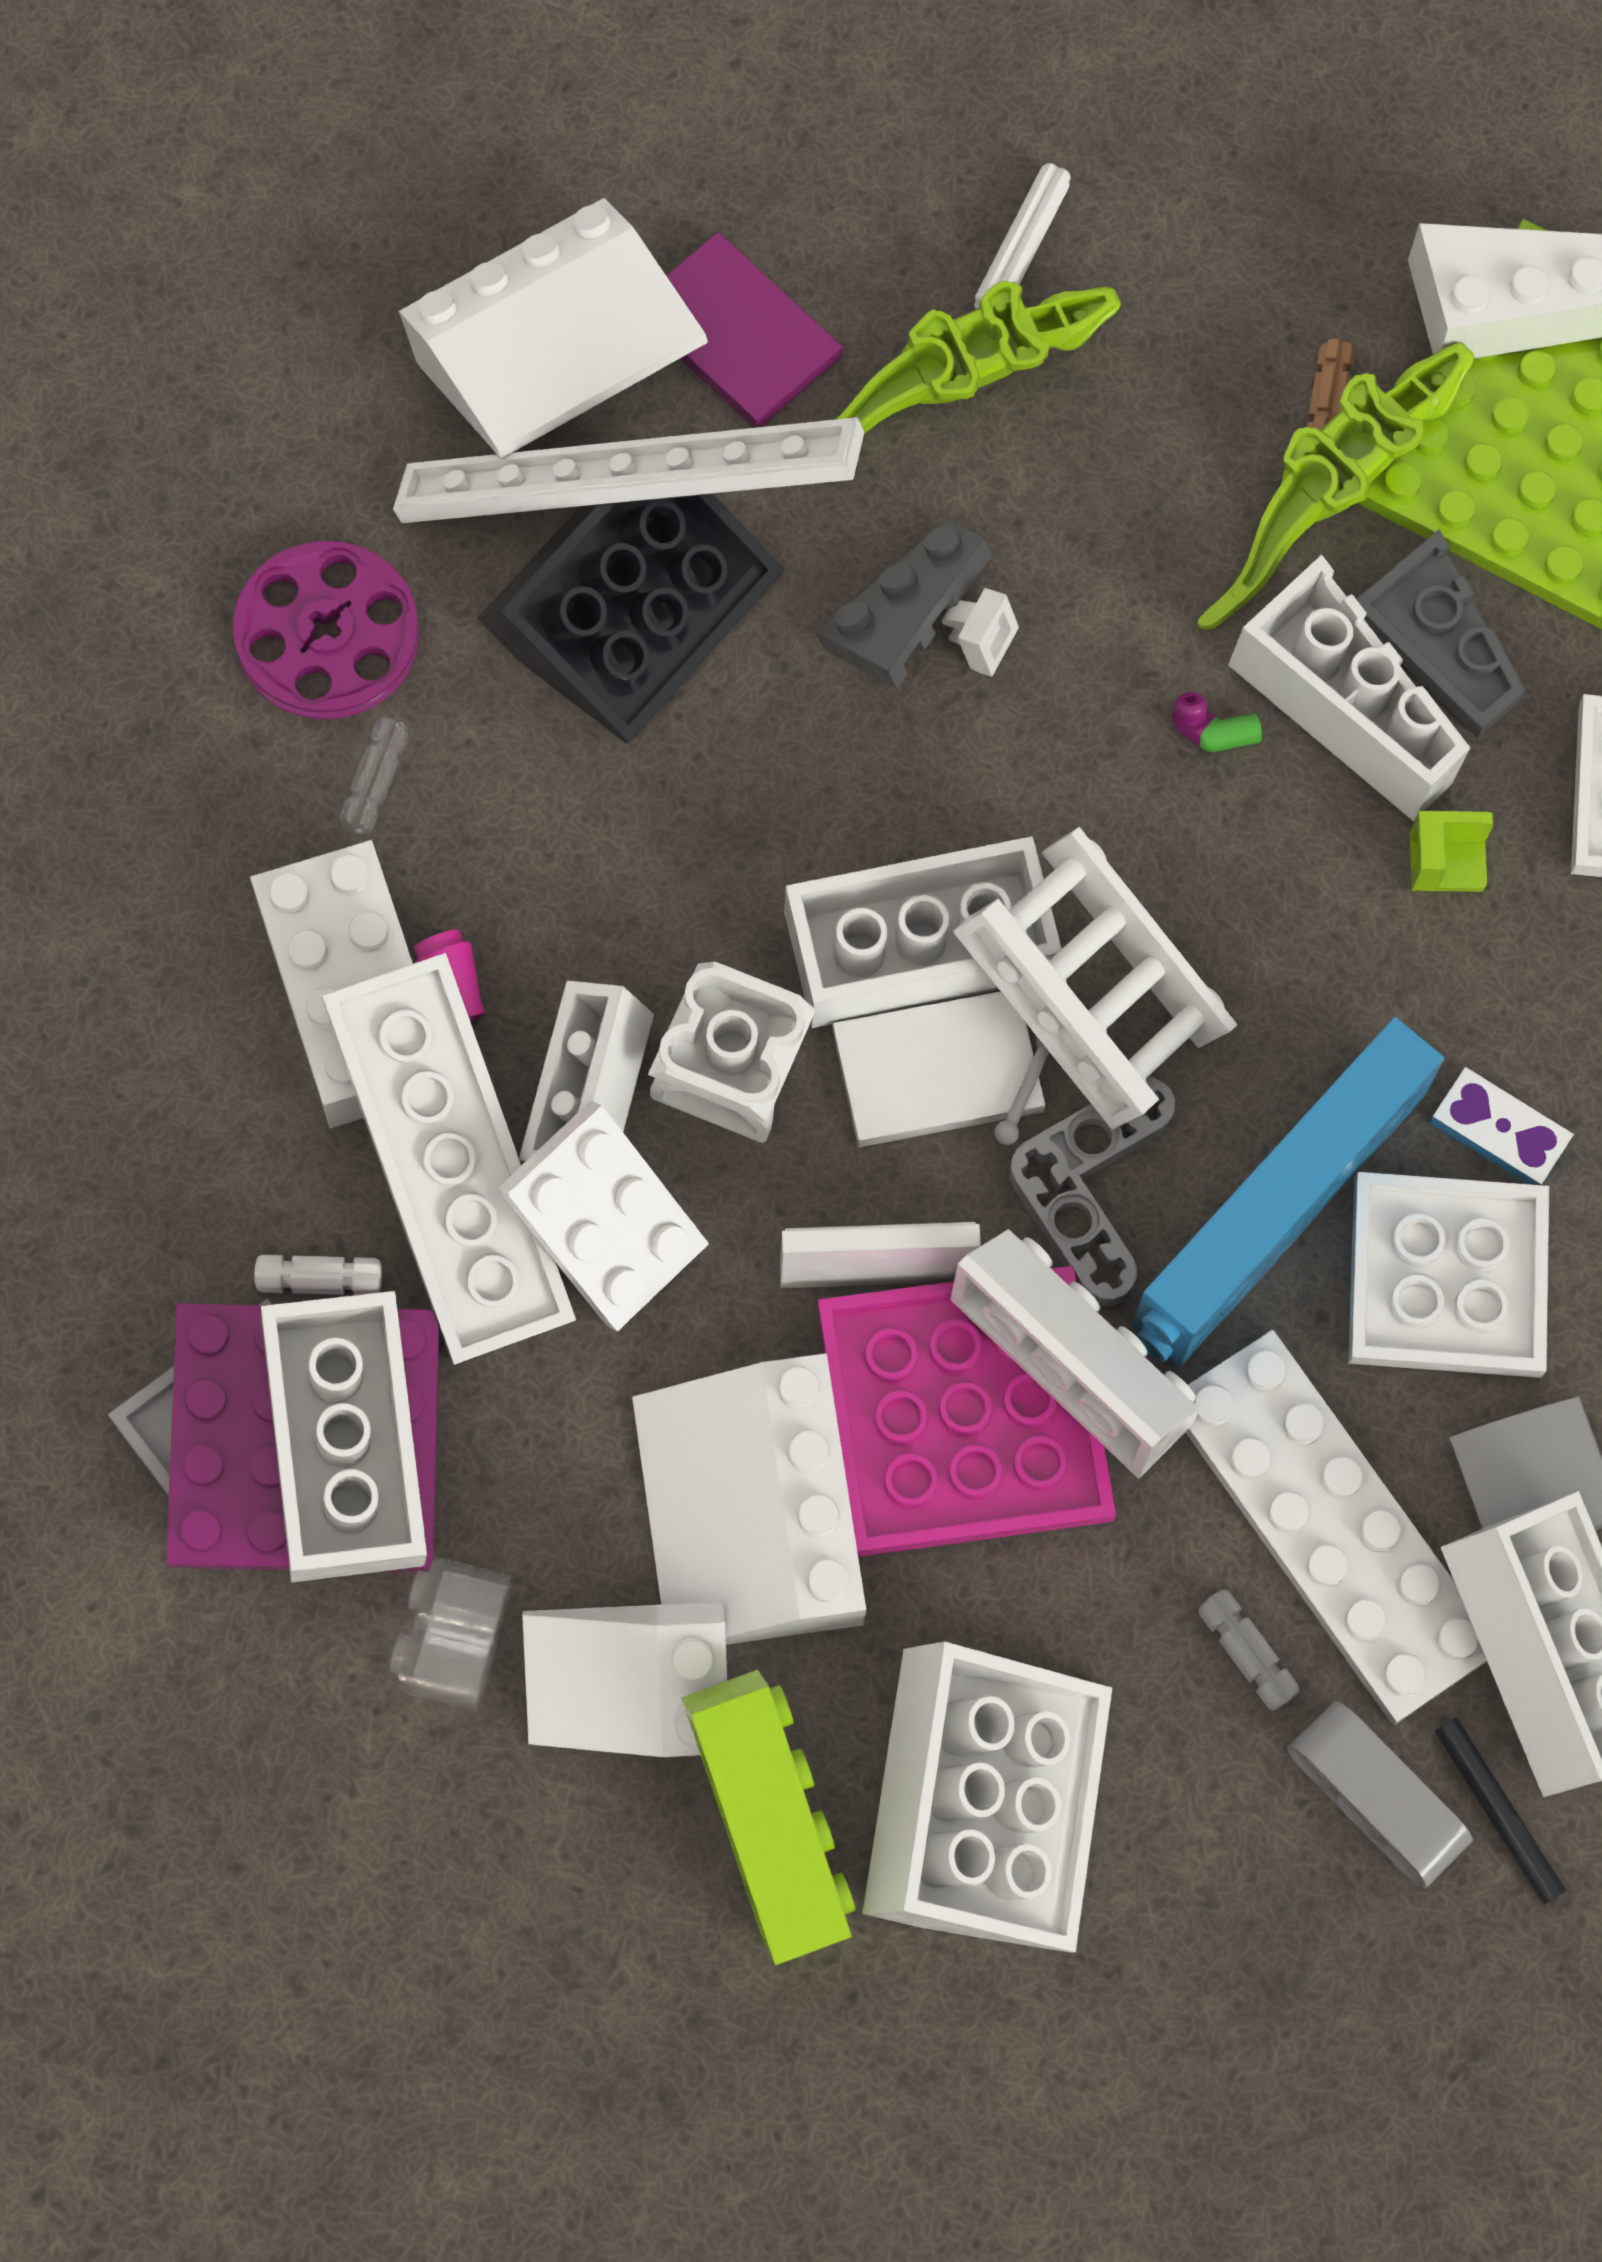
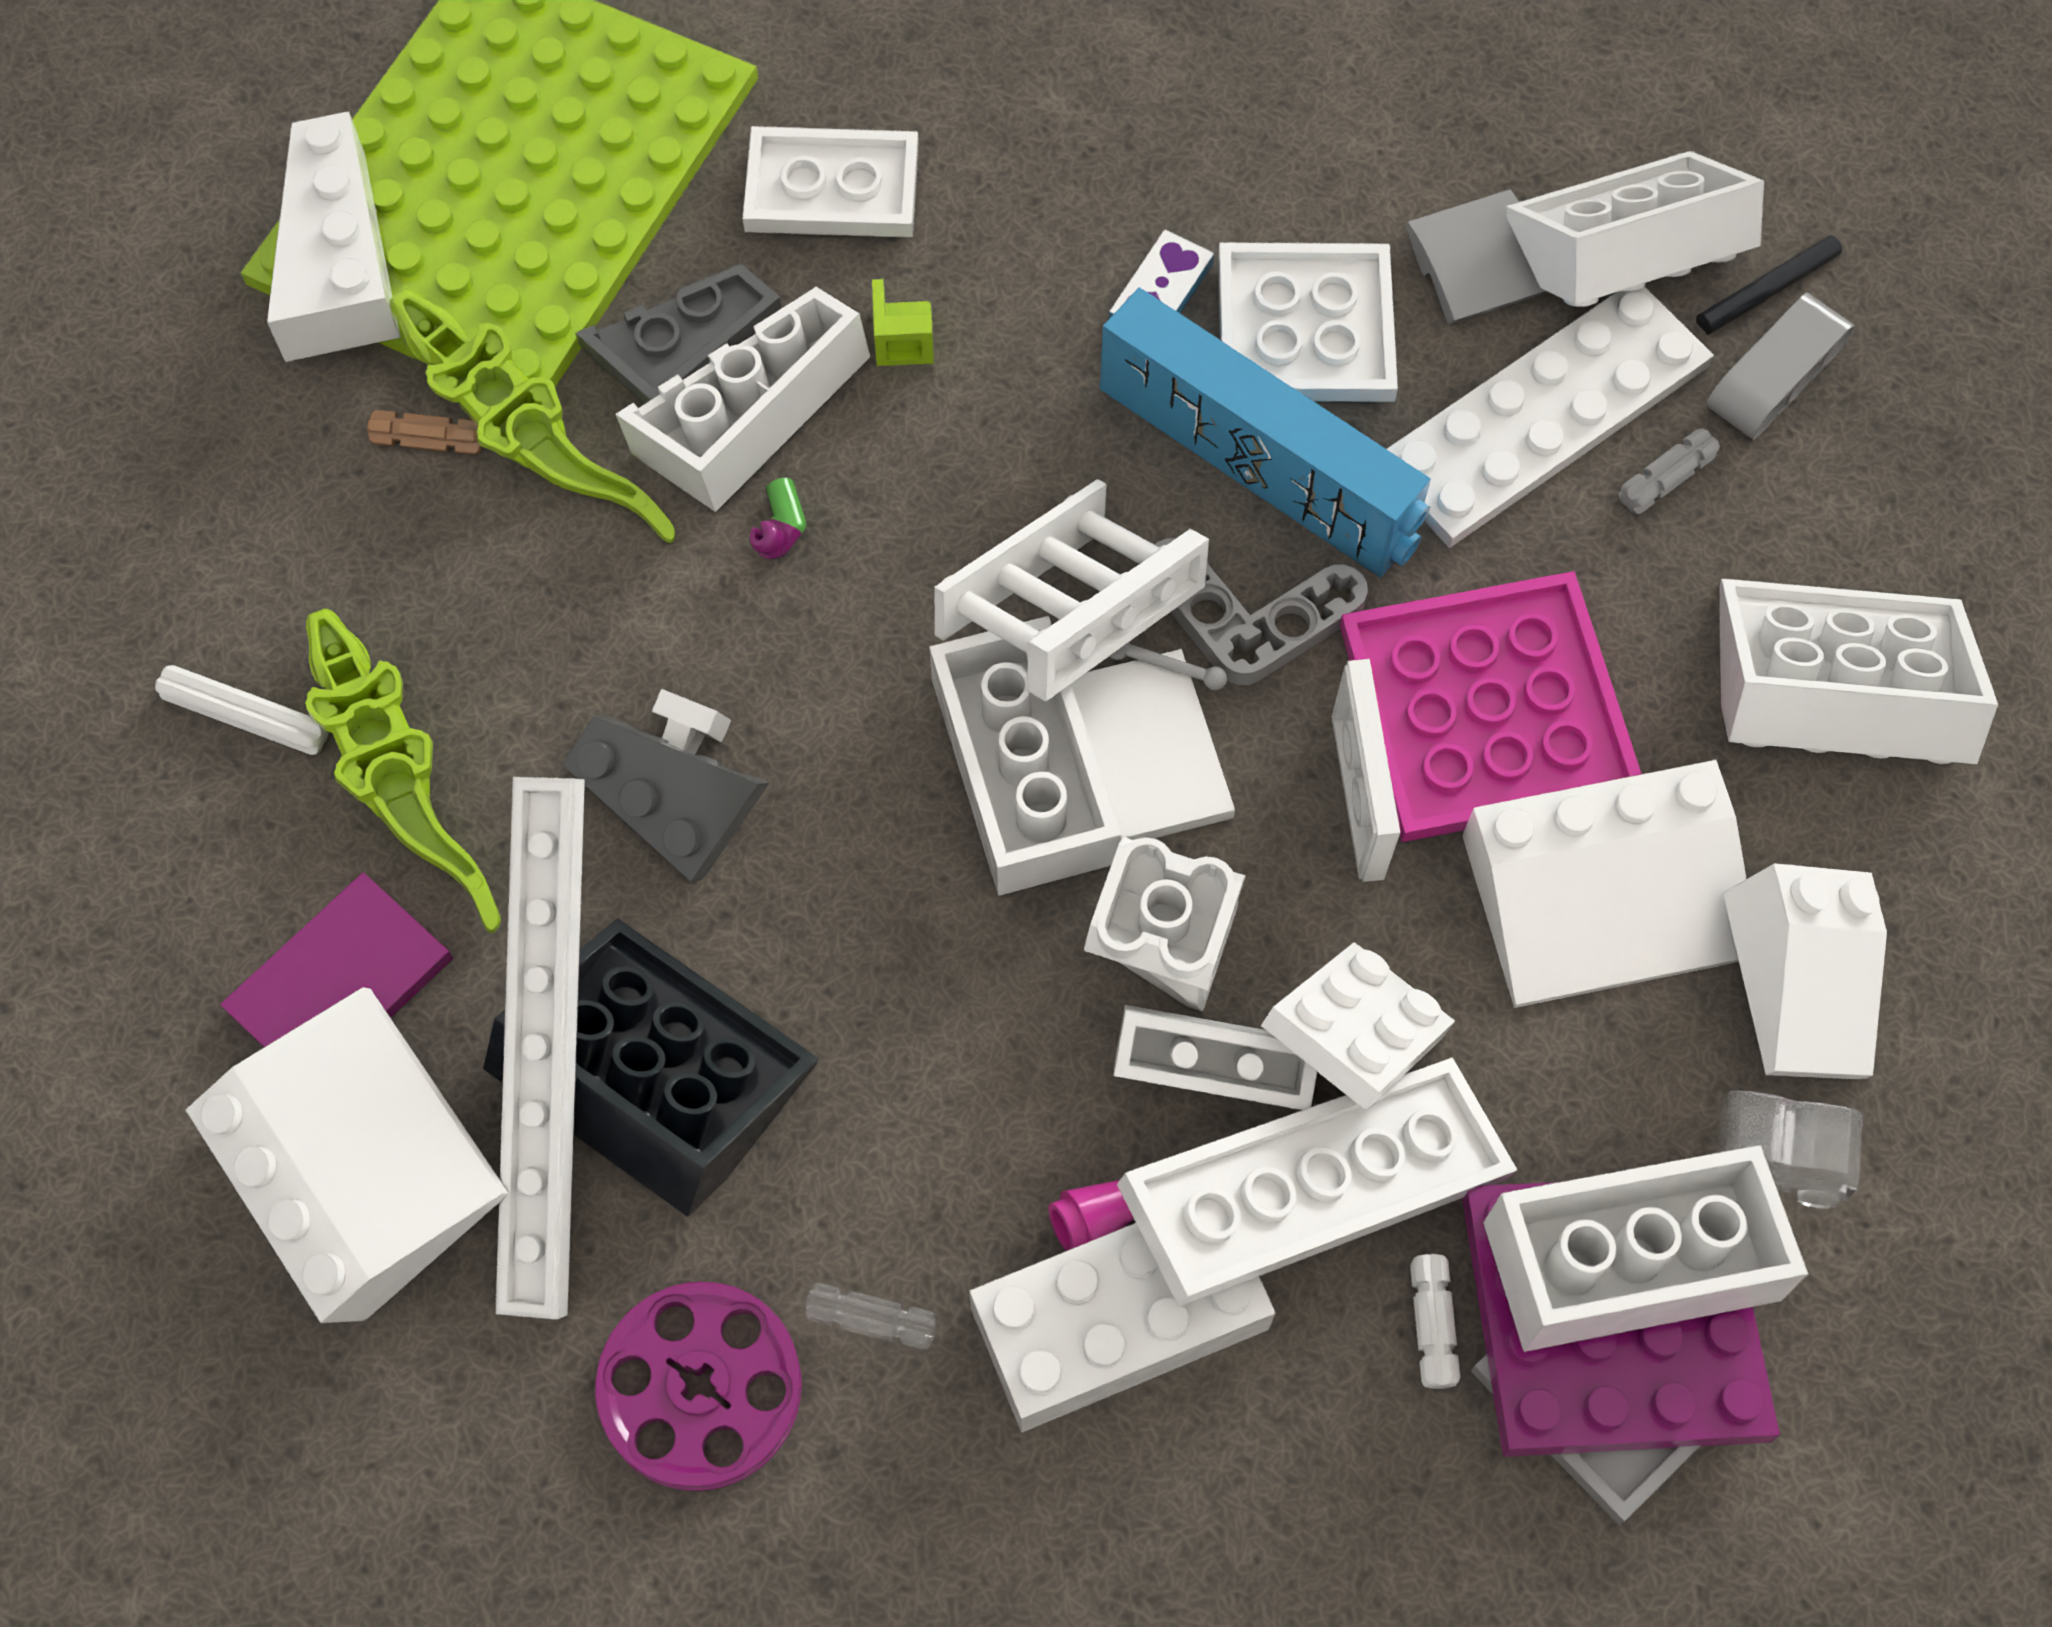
camera: 90 degrees left, 5 degrees down
(768, 1816) = (1926, 830): lime brick -> none
(1073, 1350) = (1446, 588): white slope -> none

